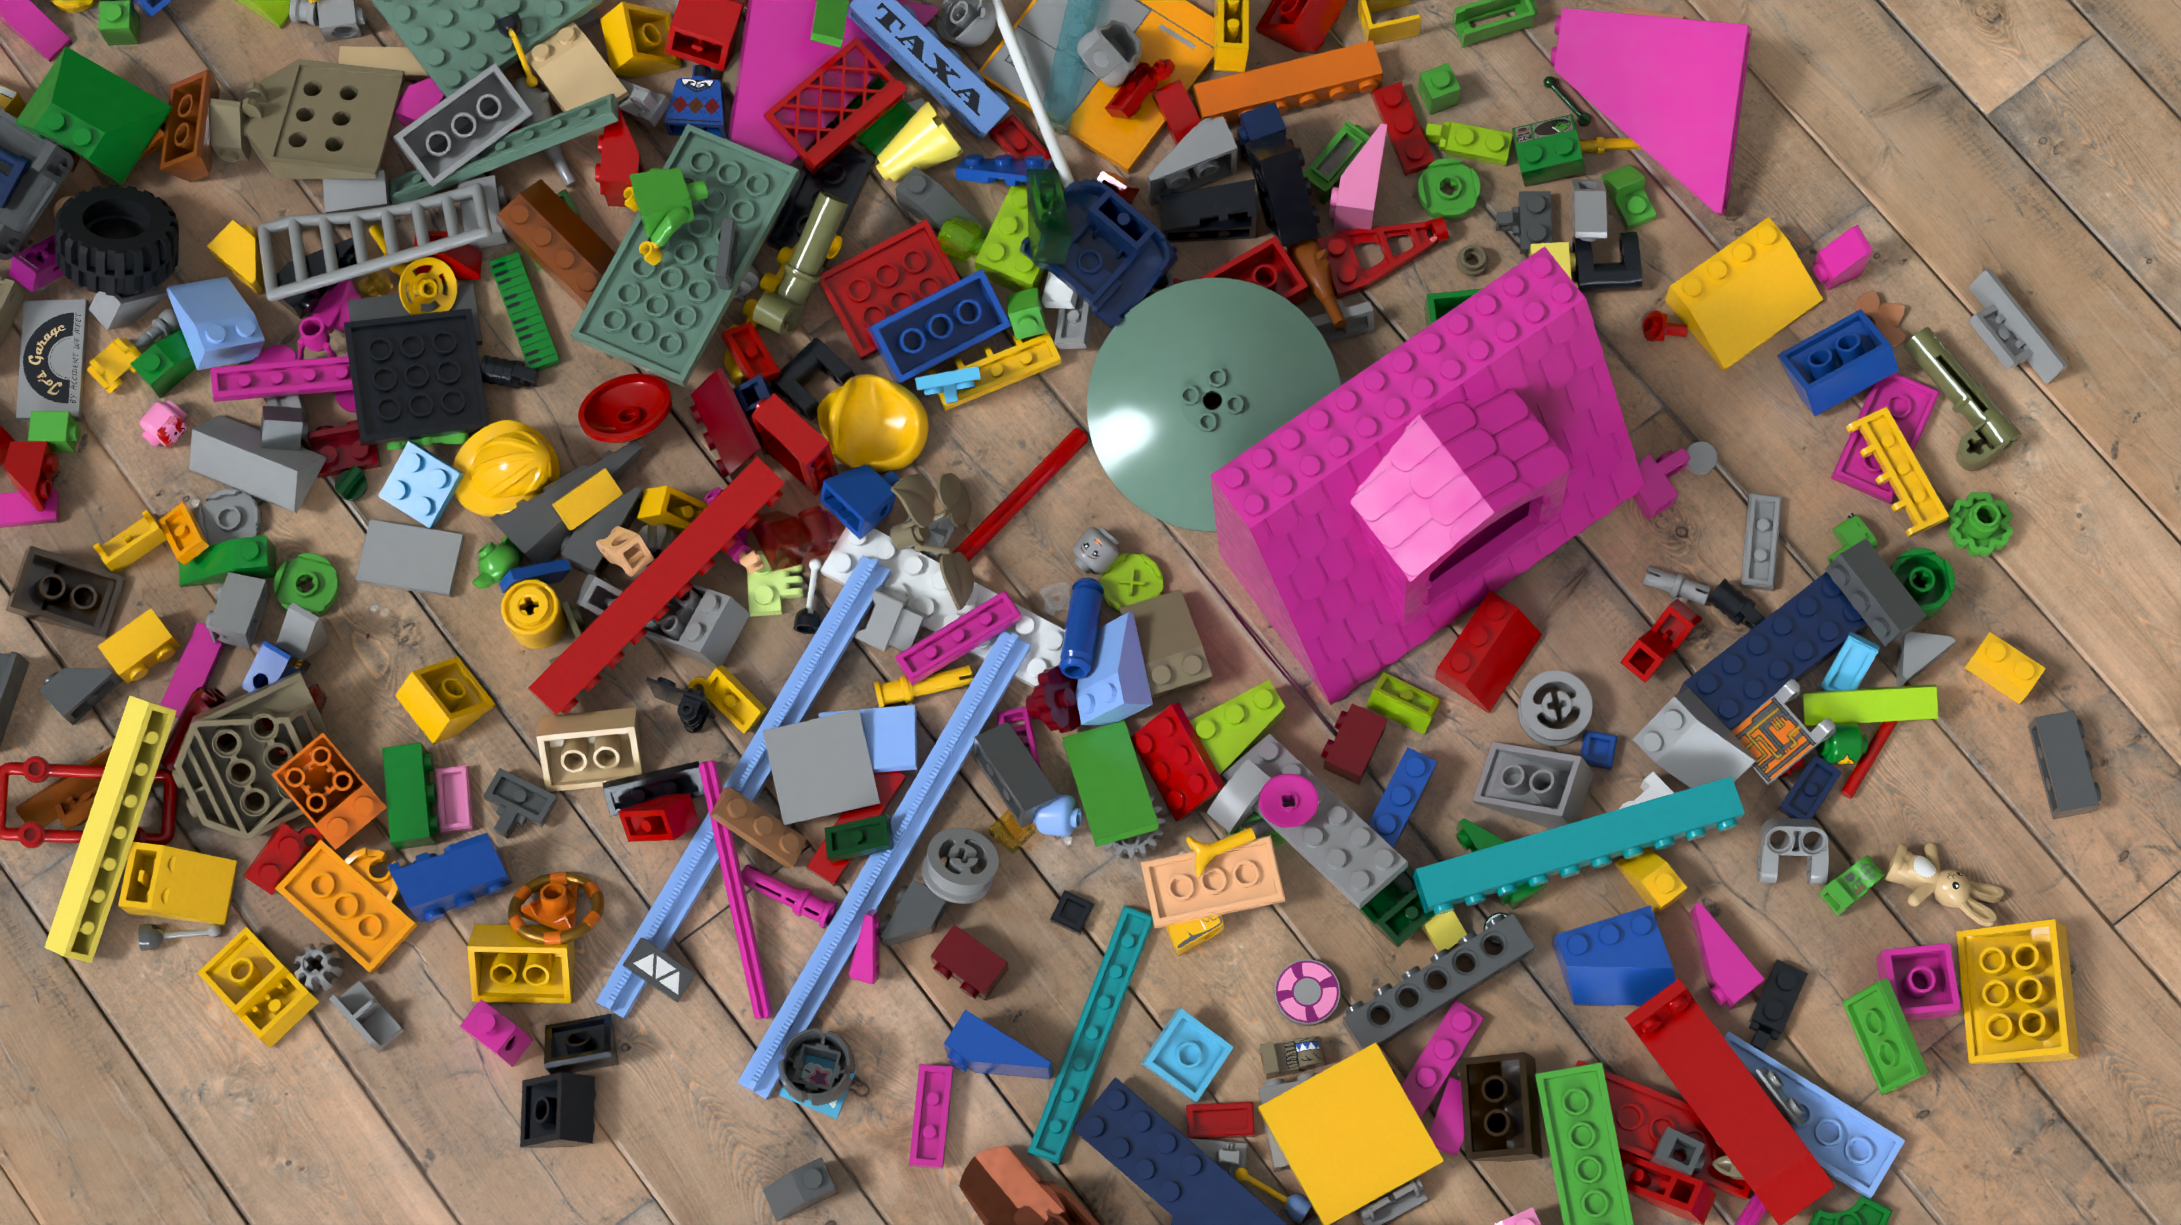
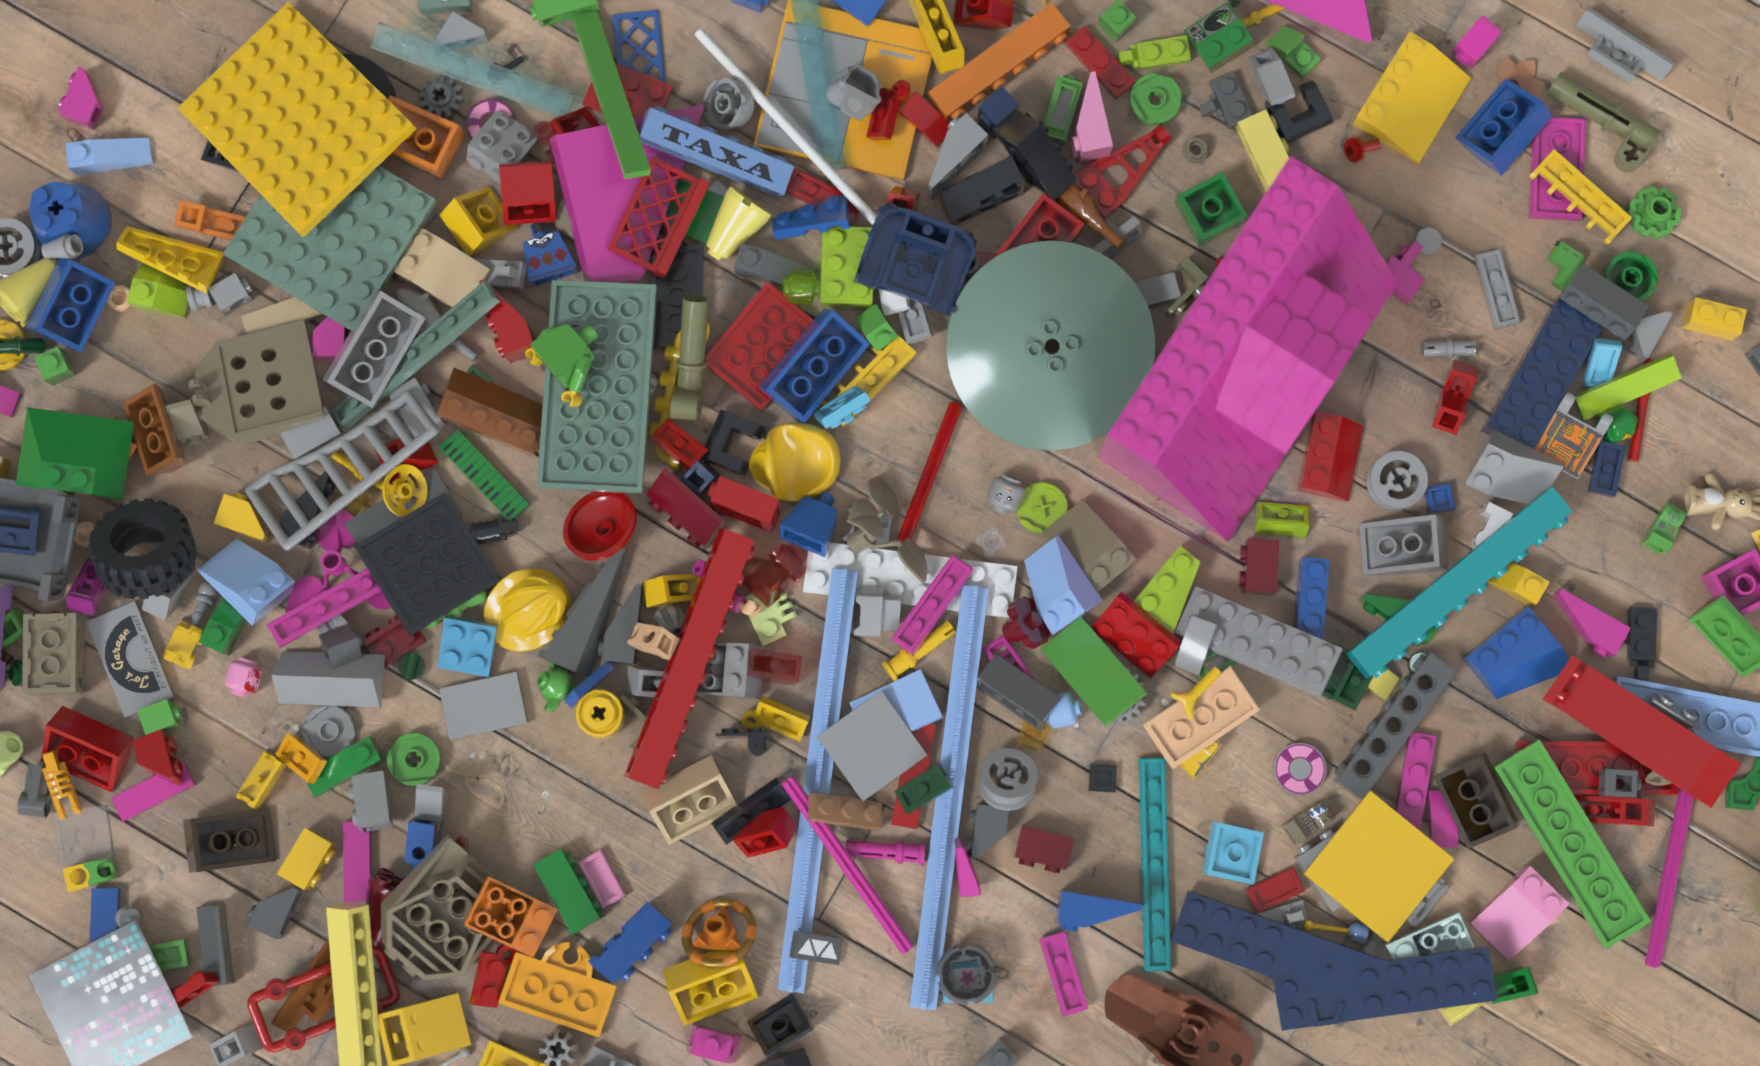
camera: 25 degrees left, 10 degrees up
(444, 699) = (561, 806): yellow slope -> none
(511, 27) = (376, 254): hinge -> none
(518, 802) = (652, 862): dark grey hinge -> none
(587, 499) = (603, 609): yellow tile -> none
(727, 254) = (633, 377): dark grey tile -> none
(748, 635) = (774, 667): none -> clear red slope
(807, 619) = (809, 633): hinge -> none
(1047, 217) = (869, 251): clear green slope -> none
(1081, 628) = (1022, 560): blue axle -> none
(1288, 789) = (1231, 627): dark pink piece -> none
(1735, 605) = (1498, 347): black hinge -> none
(1792, 845) = (1611, 518): light grey piece -> none

